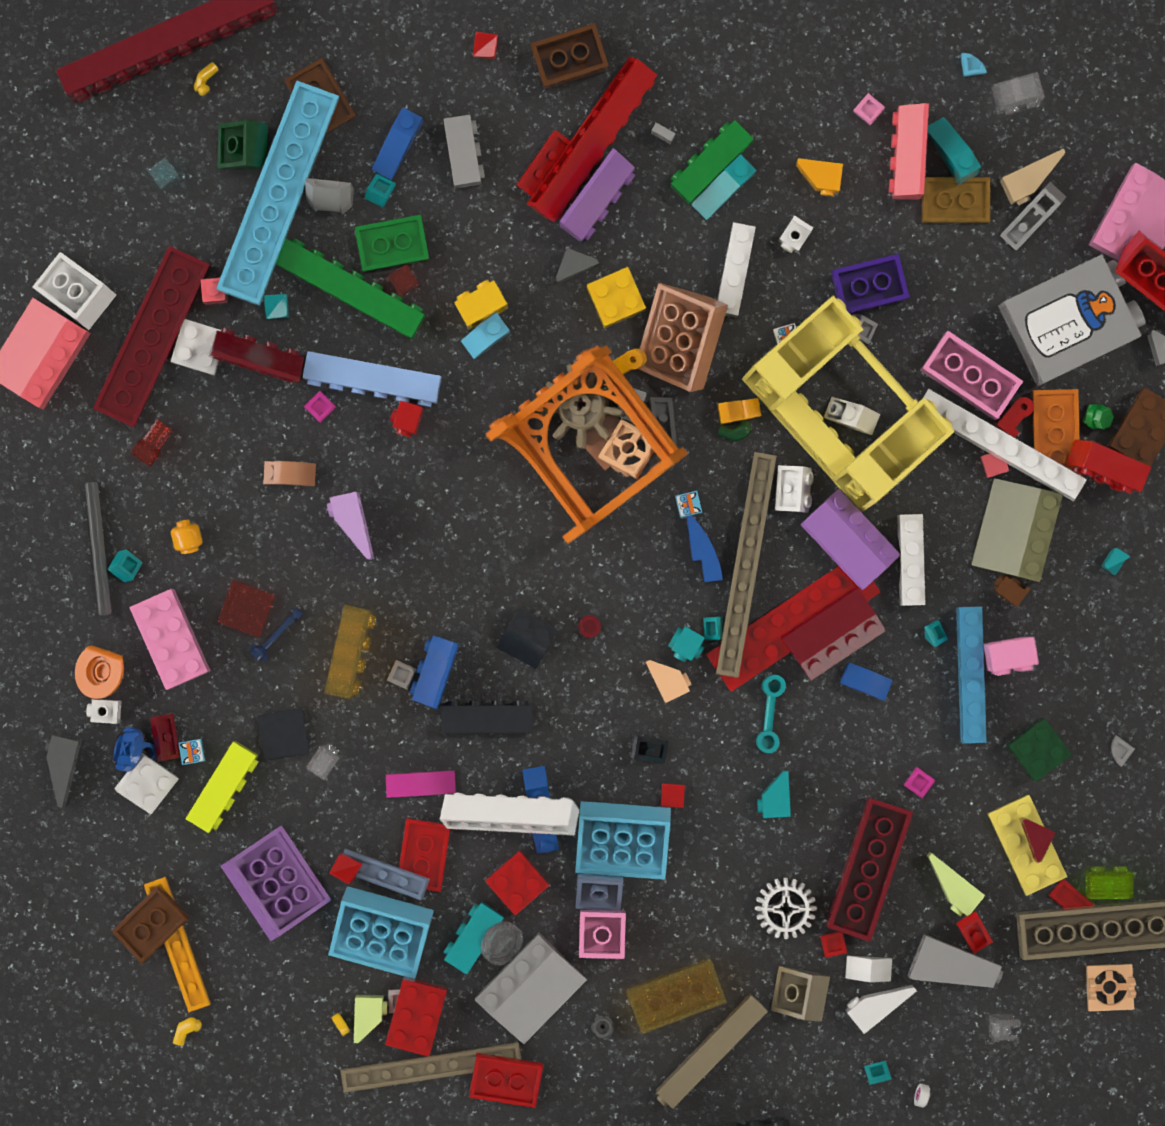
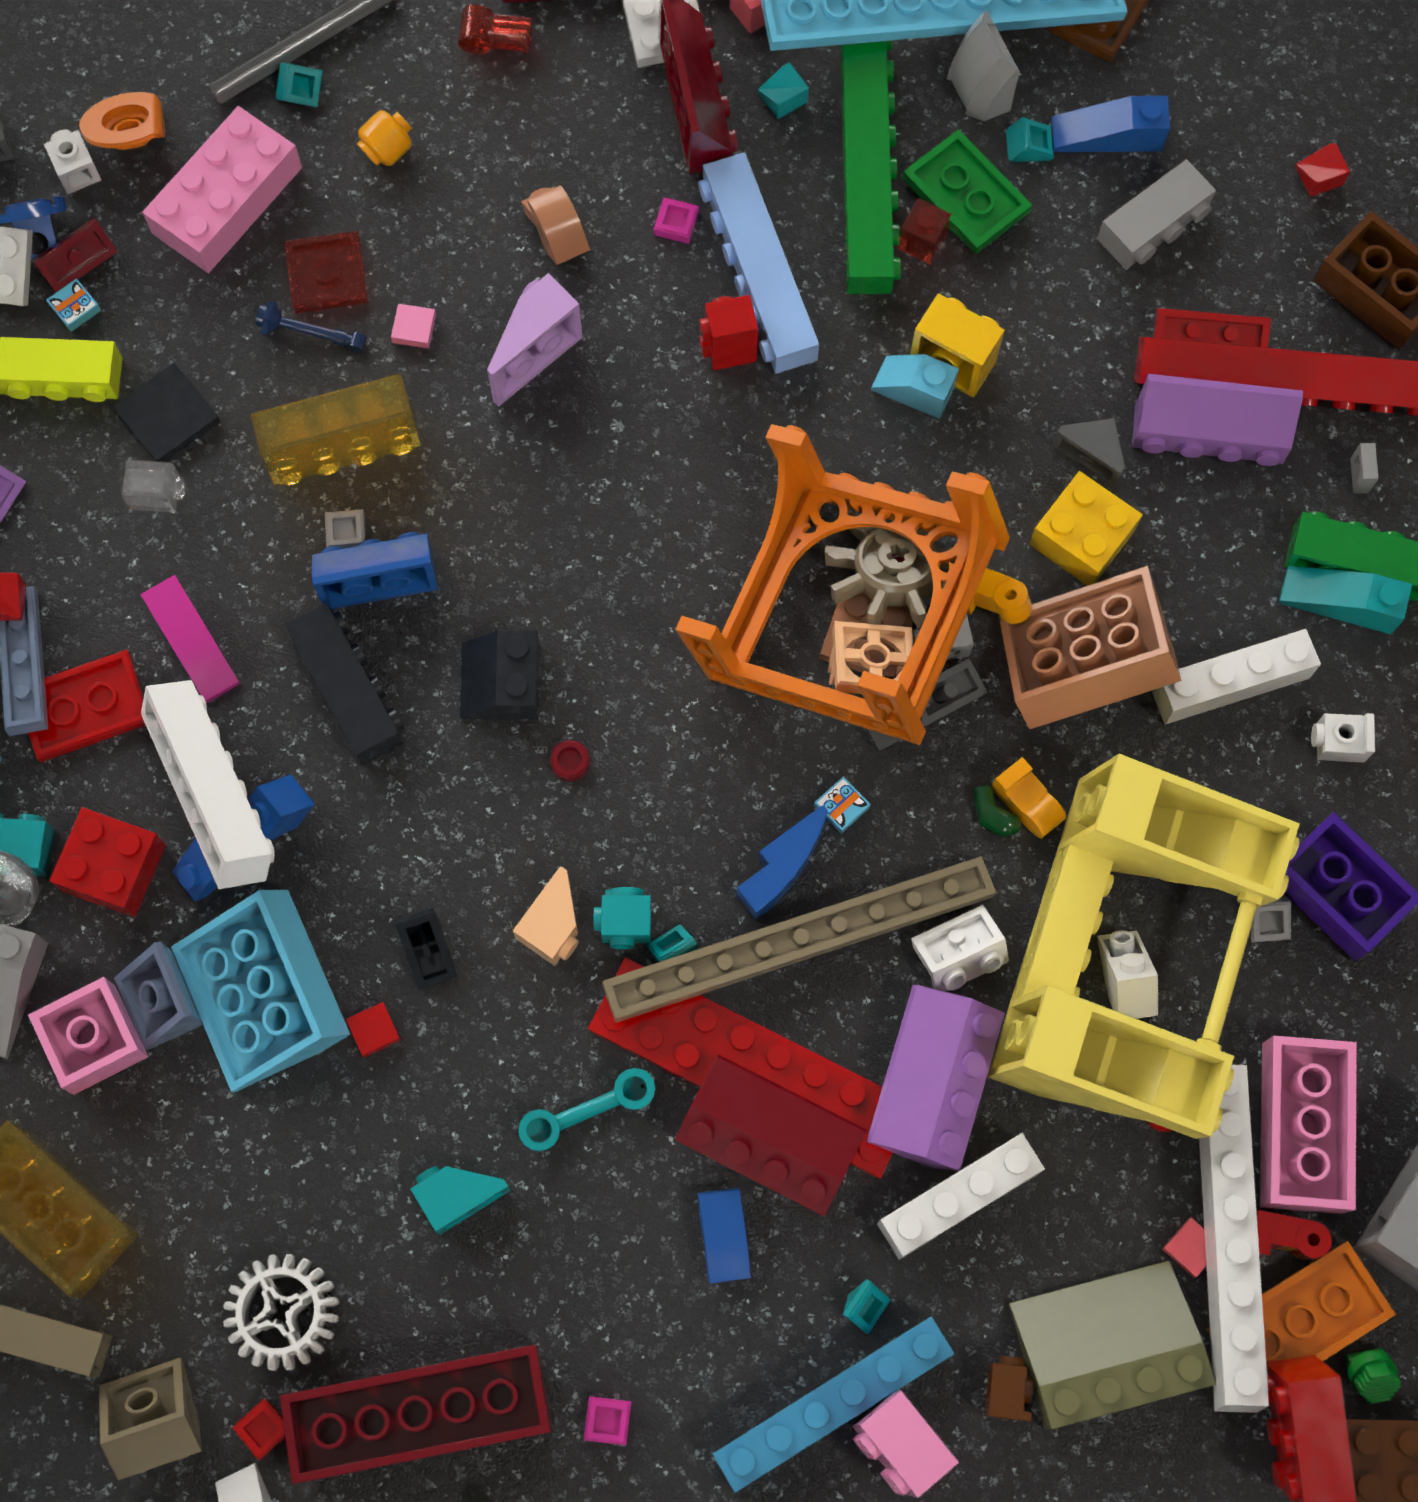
camera: 60 degrees right, 15 degrees down
(304, 579) = (413, 326): none -> bright pink tile

